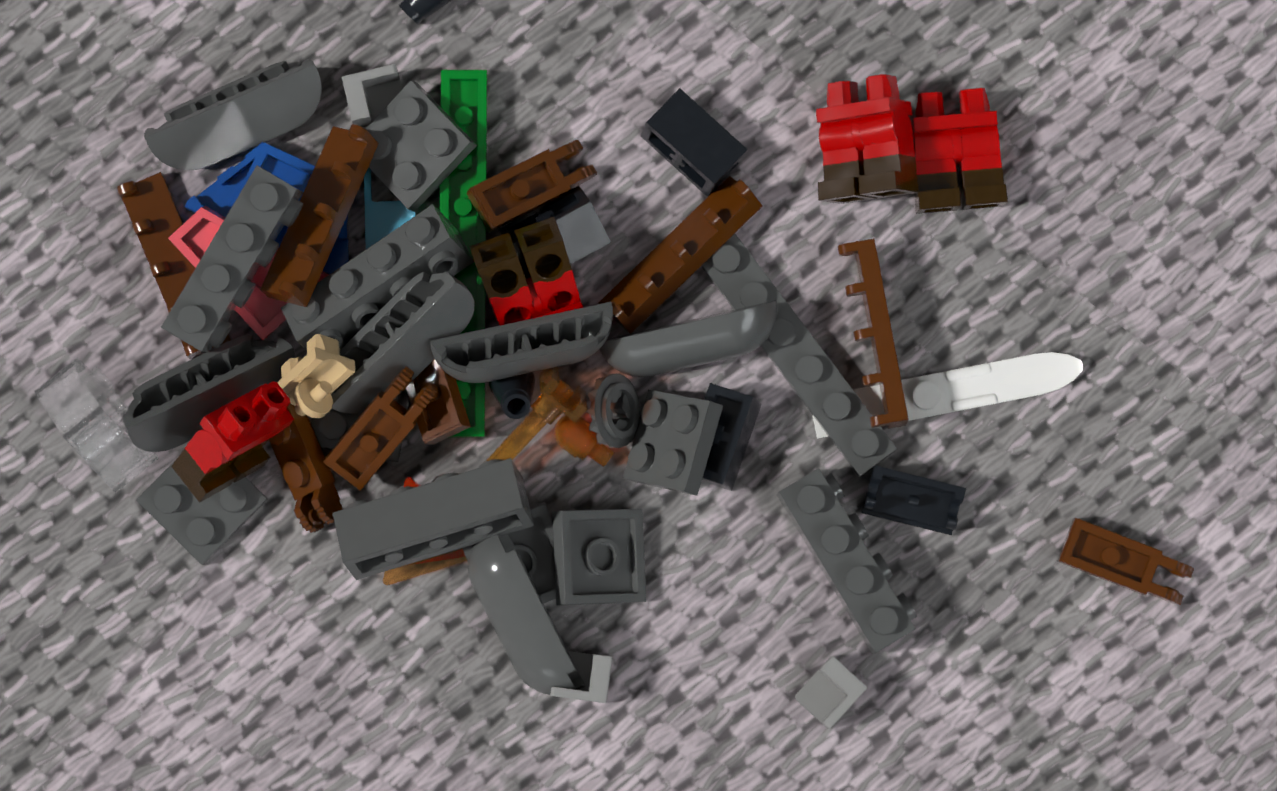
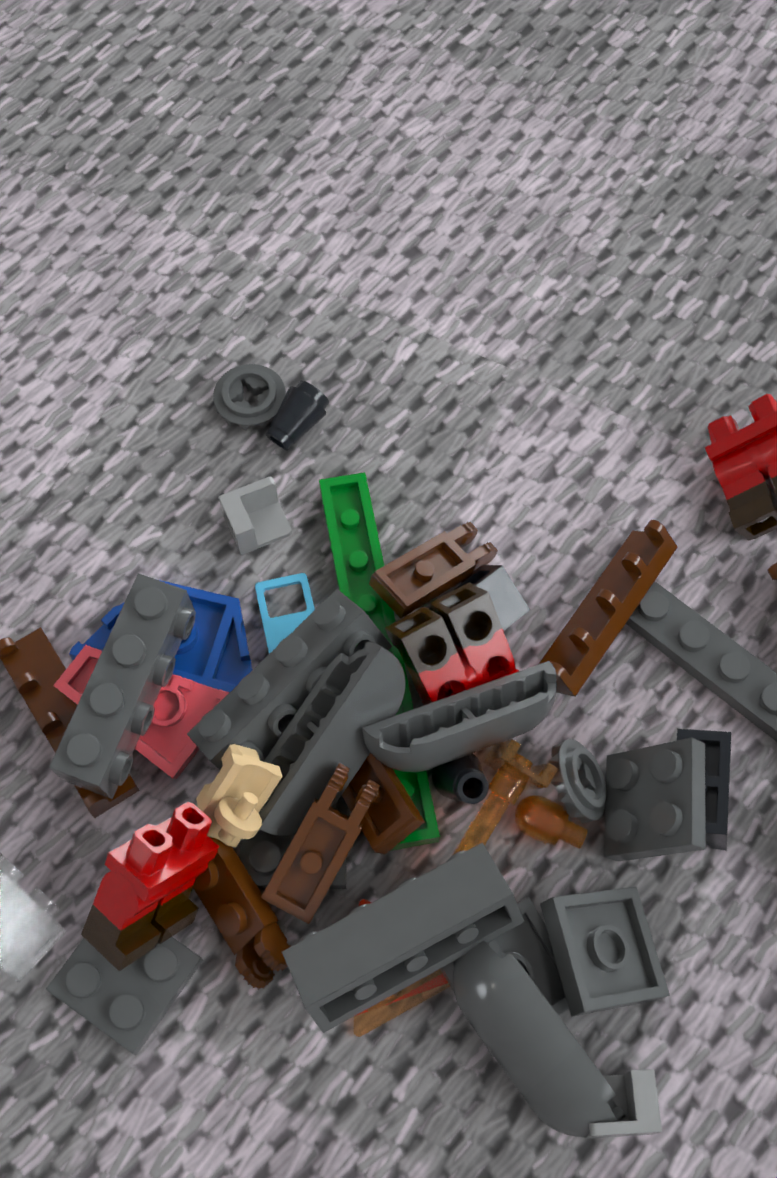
camera: 10 degrees left, 20 degrees down
(174, 403) = (70, 863): dark grey brick -> none
(236, 116) = (112, 561): dark grey brick -> none
(323, 213) = (216, 633): reddish brown hinge -> none
(416, 145) = (303, 552): dark grey plate -> none
(691, 341) = (641, 691): dark grey brick -> none
(693, 142) = (588, 504): black hinge -> none

